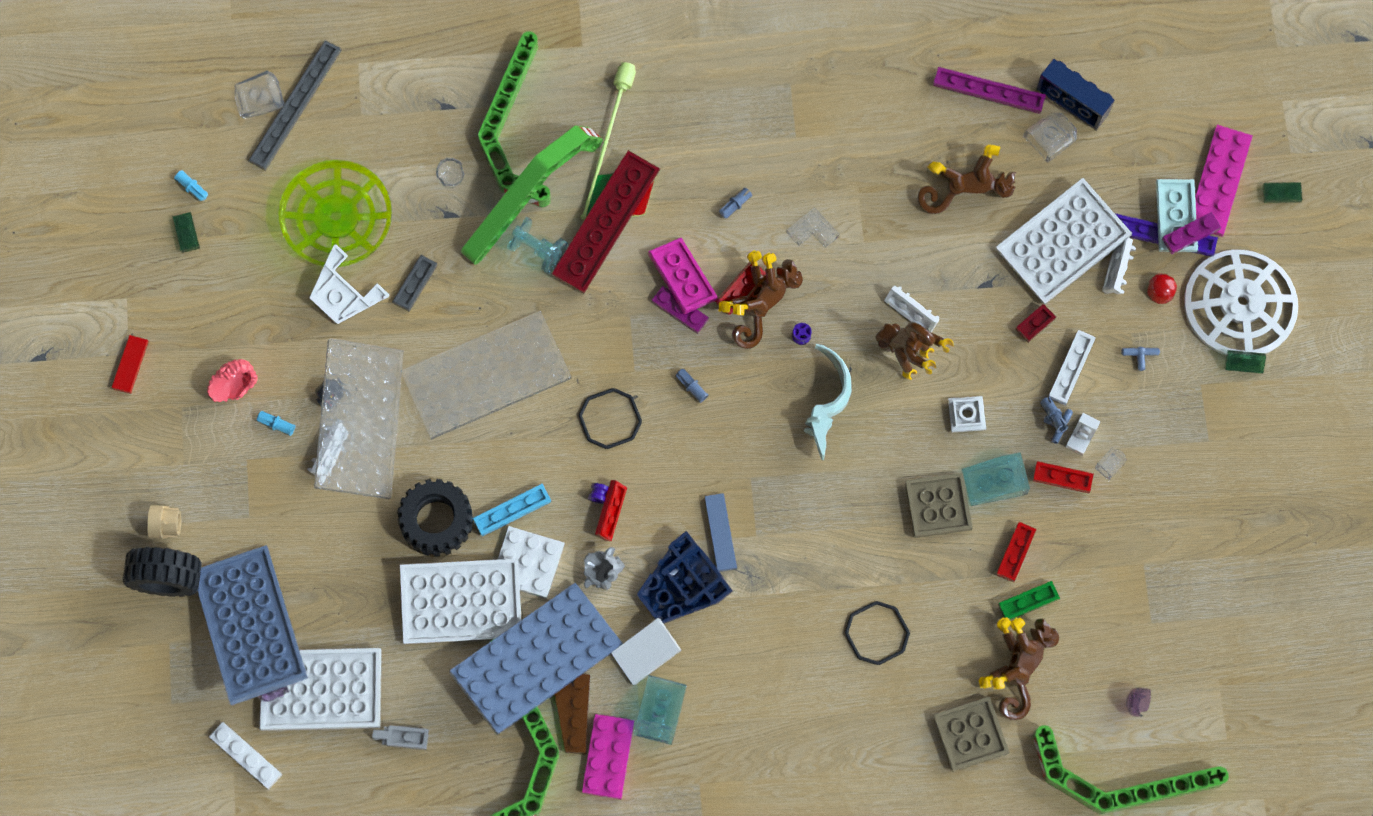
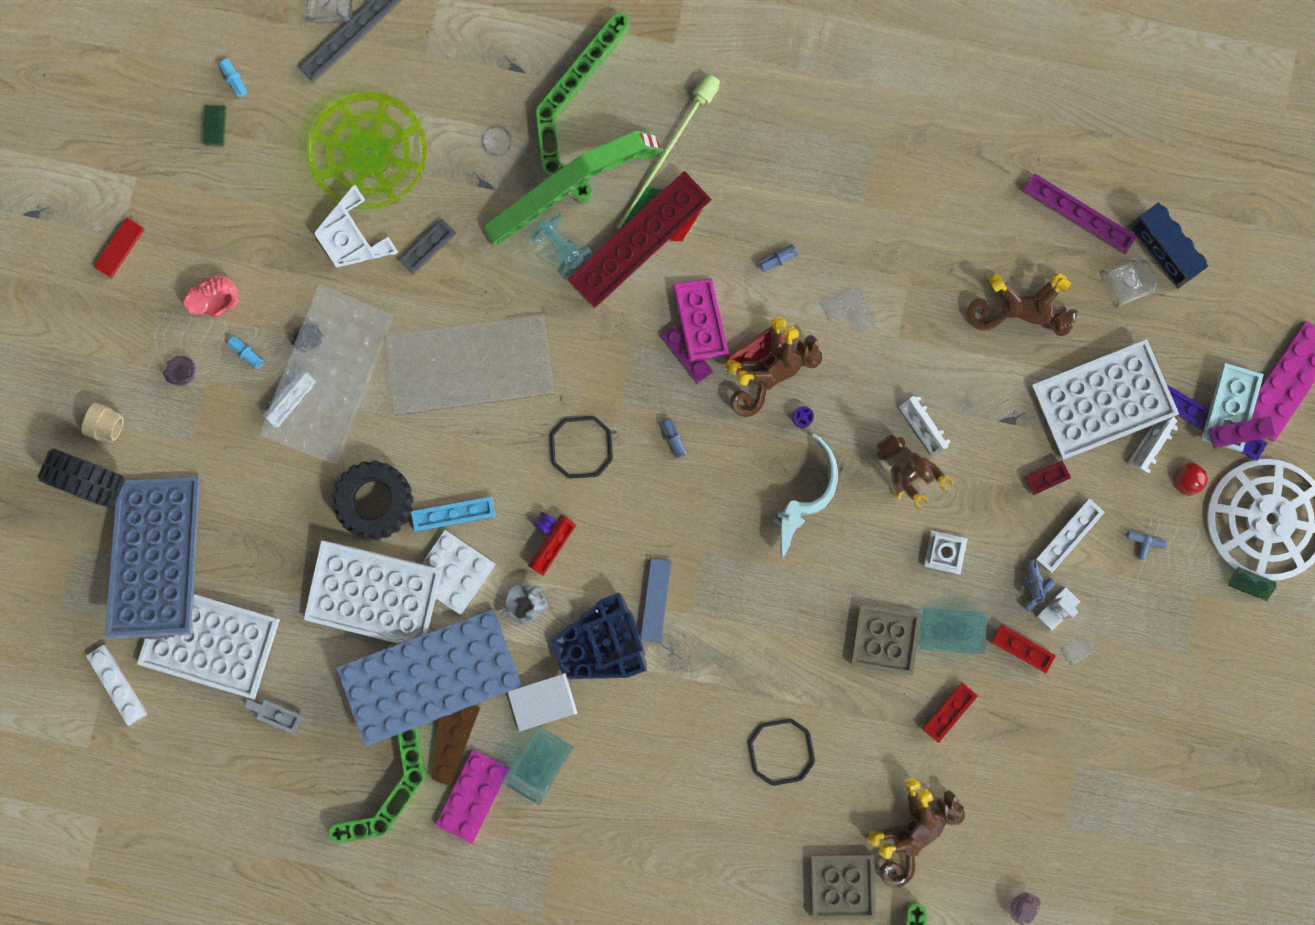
camera: 20 degrees right, 10 degrees up
(221, 455) = (180, 371): none -> clear purple hair
(1029, 601) = (946, 767): green plate -> none

